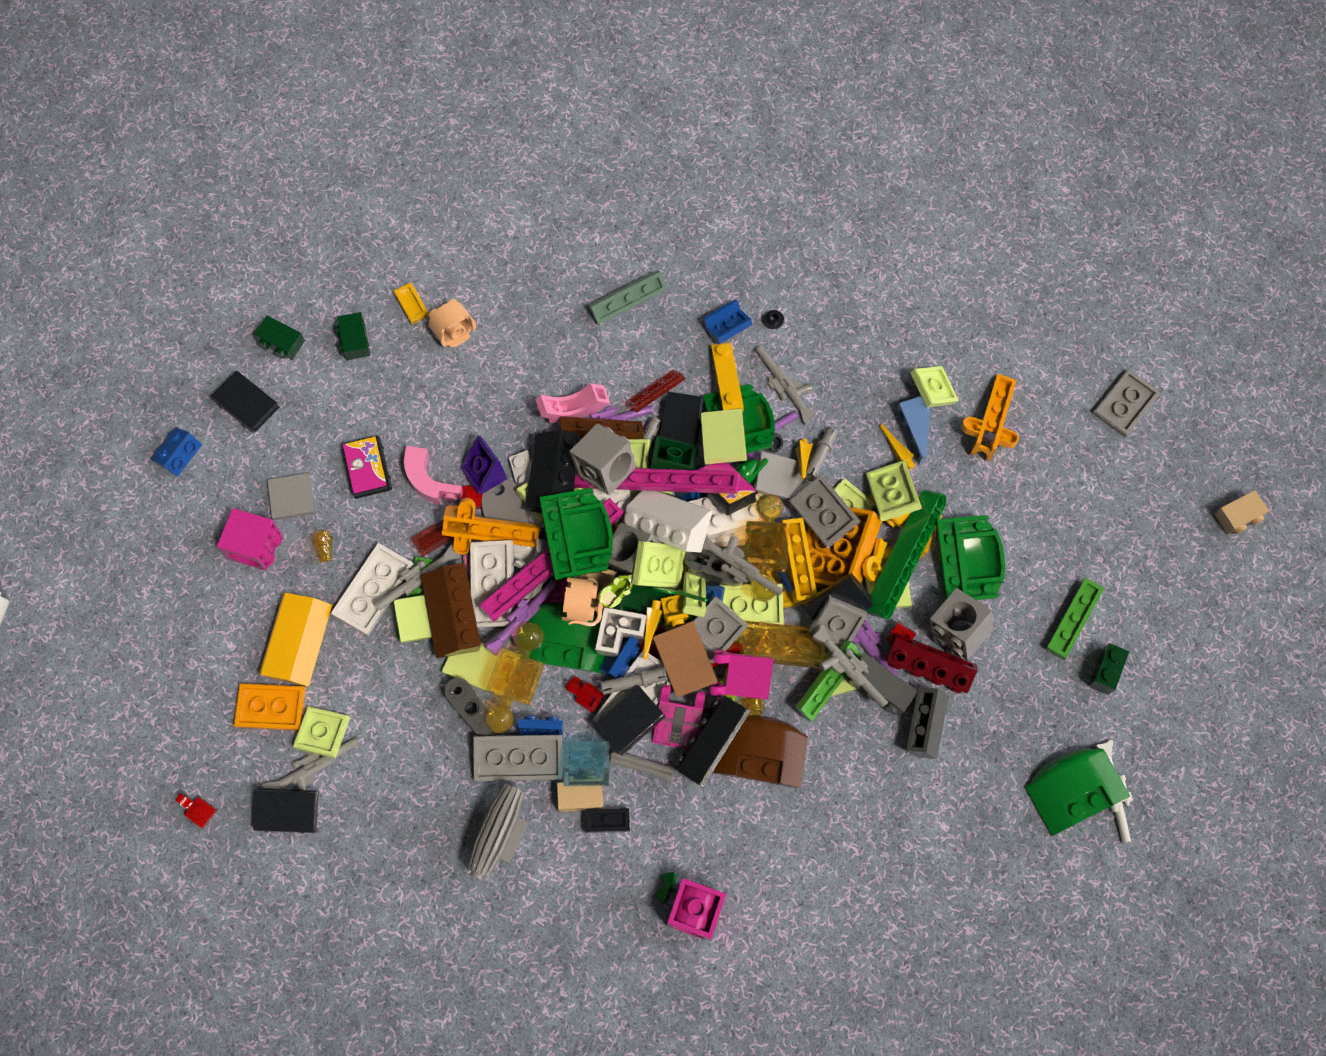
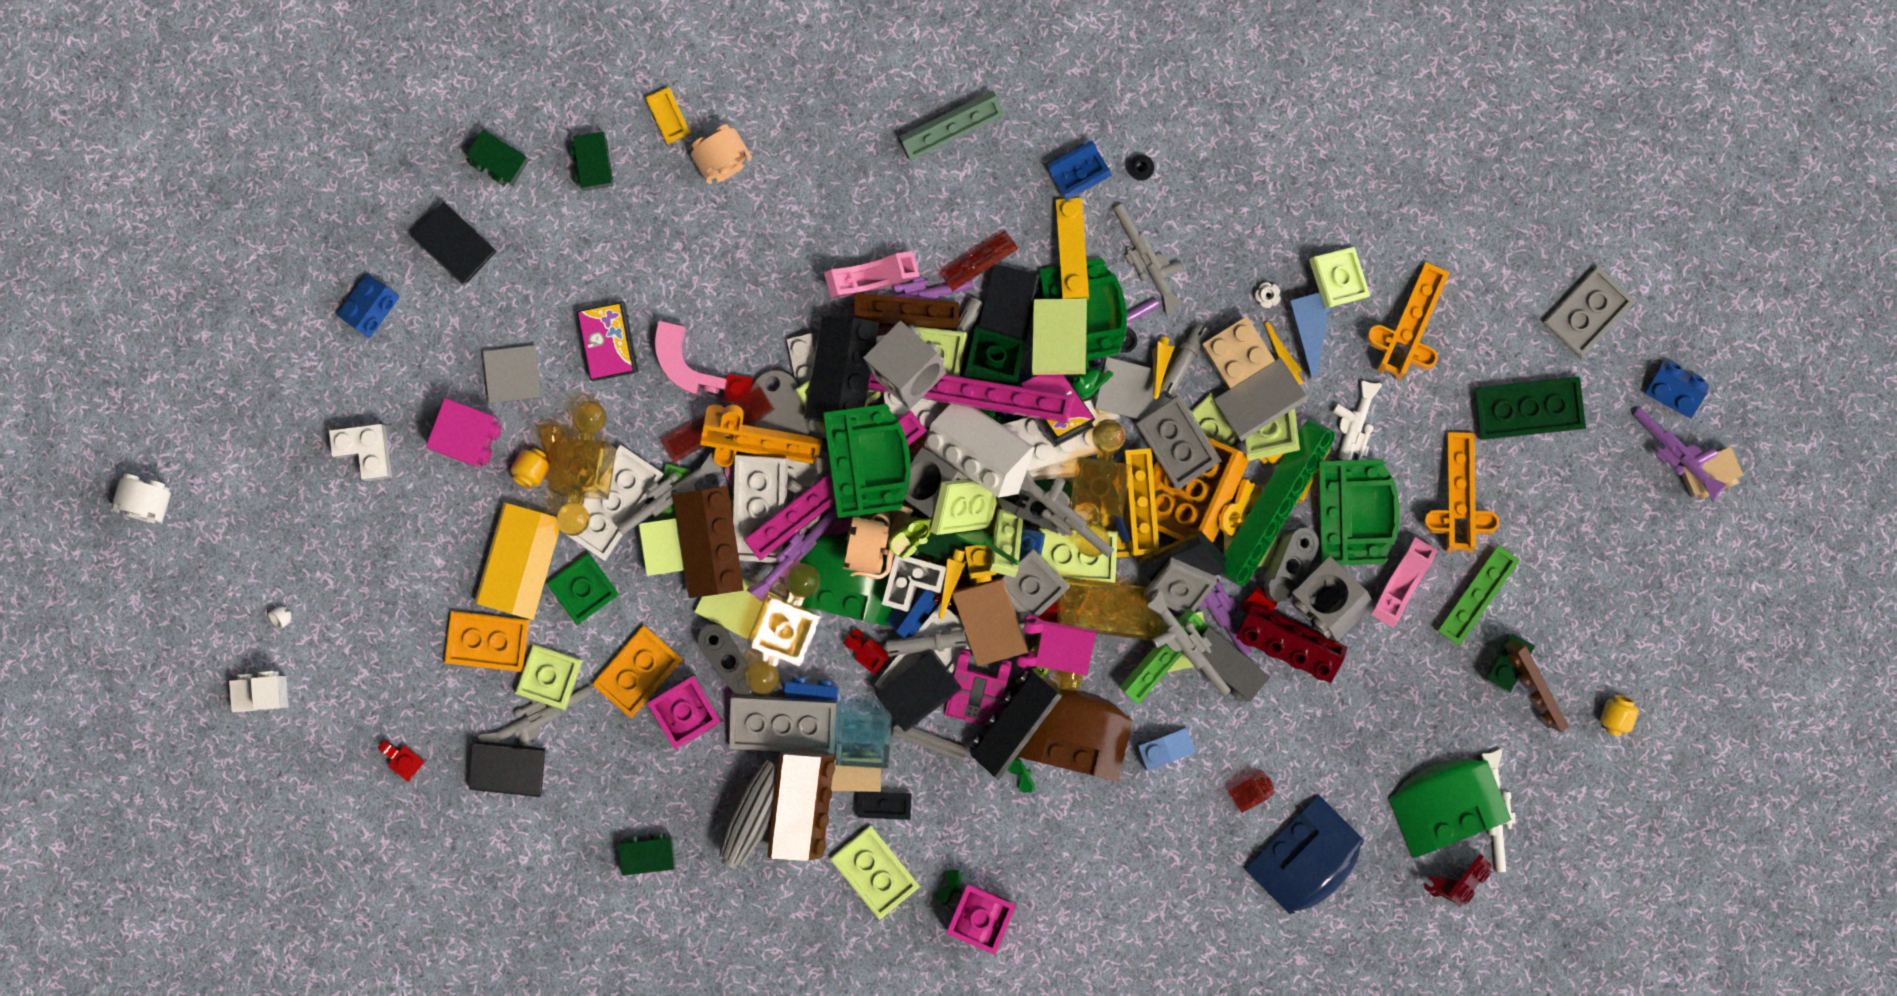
camera: 15 degrees right, 15 degrees up
(75, 759) = (259, 693): none -> white brick
(96, 697) = (279, 617): none -> white hinge
(171, 554) = (369, 444): none -> white brick
(304, 565) = (530, 468): none -> yellow head
(346, 561) = (582, 468): none -> clear yellow brick
(349, 659) = (582, 589): none -> green tile
(395, 723) = (637, 671): none -> light orange tile
(406, 876) = (647, 855): none -> dark green brick
(435, 750) = (685, 712): none -> dark pink brick
(483, 467) = (753, 355): dark purple slope -> none
(486, 505) = (755, 406): none -> clear red bracket
(536, 822) = (801, 805): none -> slope
(602, 879) = (875, 872): none -> yellowish green tile
(717, 782) = (1026, 784): none -> green piece
(837, 758) = (1166, 749): none -> medium blue slope
(862, 445) = (1237, 353): none -> tan brick
(880, 408) = (1264, 288): none -> white plate
(885, 476) = (1261, 399): none -> light grey tile
(913, 788) = (1252, 791): none -> clear red bracket
(922, 600) = (1279, 581): none -> dark grey piece
(927, 723) = (1277, 716): dark grey brick -> none
(957, 493) = (1352, 423): none -> white piece
(964, 842) = (1308, 858): none -> dark blue slope
(1015, 608) = (1403, 582): none -> bright pink arch
(1051, 545) = (1461, 497): none -> light orange piece
(1093, 474) = (1530, 408): none -> dark green plate
(1096, 858) = (1461, 890): none -> dark red plate
(1136, 682) = (1532, 680): none -> reddish brown plate
(1203, 705) = (1619, 715): none -> yellow head
(1204, 454) = (1677, 388): none -> blue bracket
(1226, 498) = (1676, 452): none -> medium lavender piece

